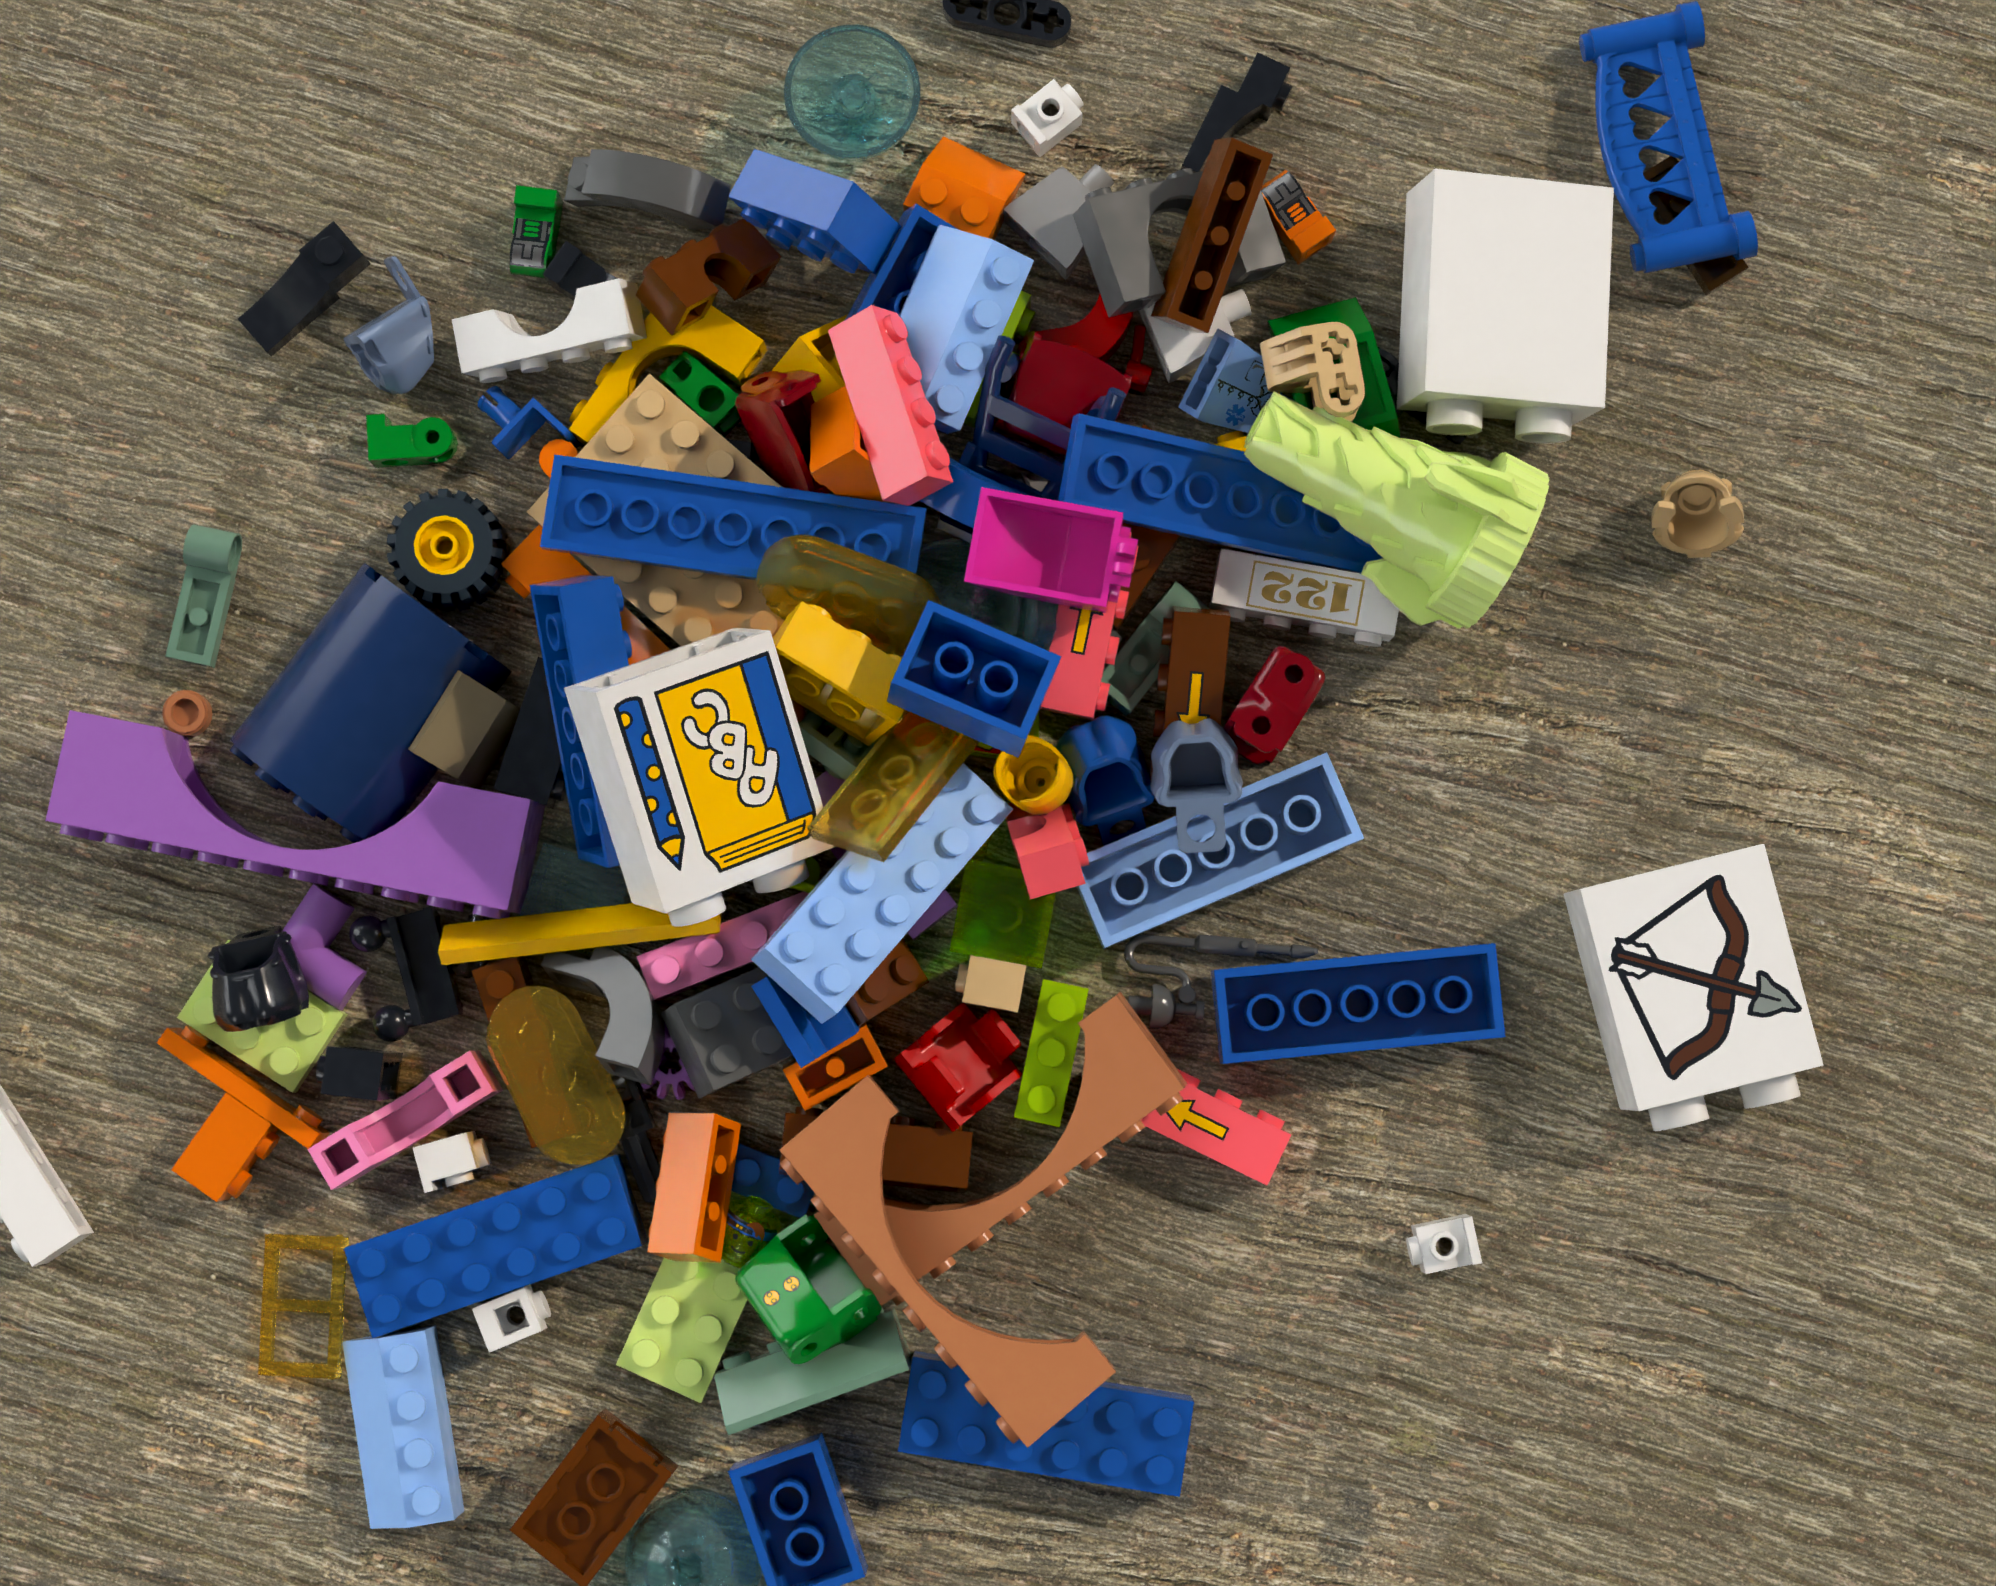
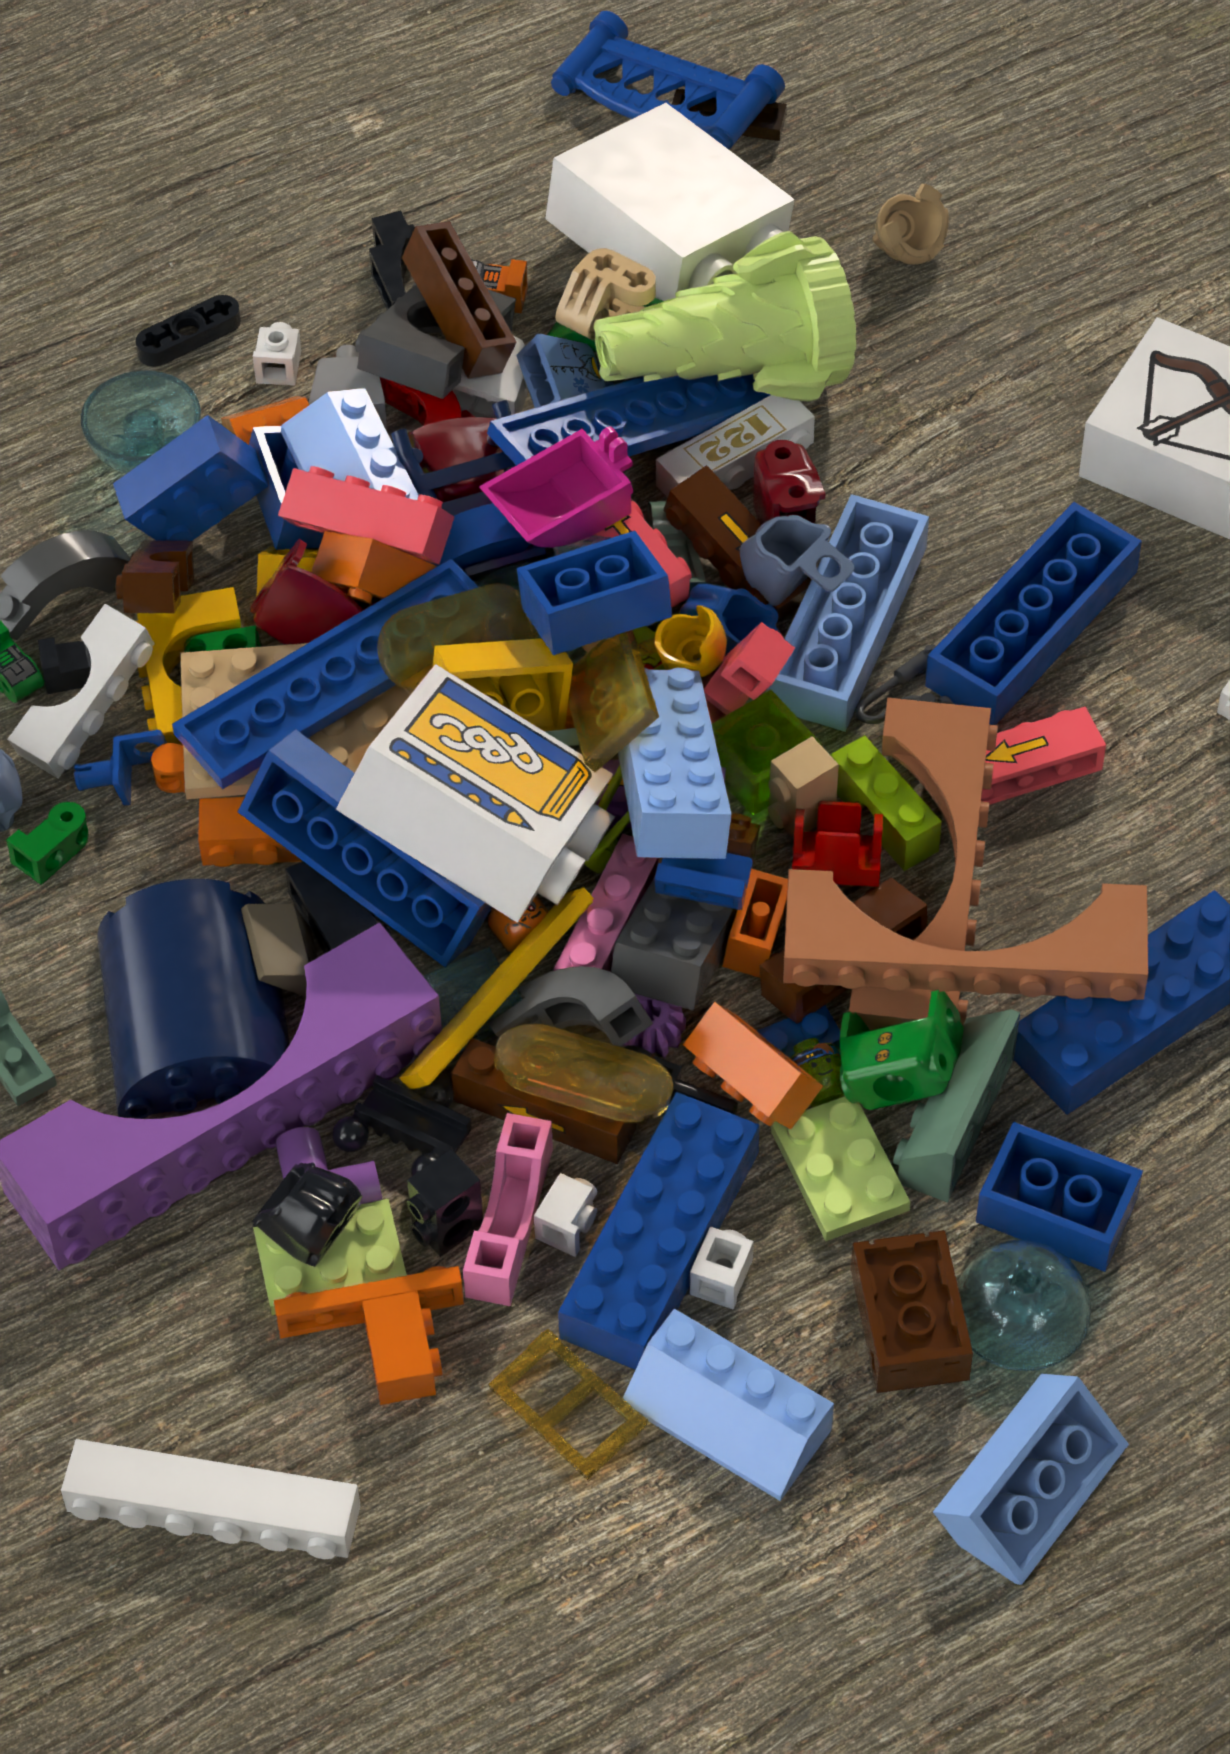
camera: 50 degrees left, 30 degrees down
(448, 550) = (145, 854): black wheel -> none

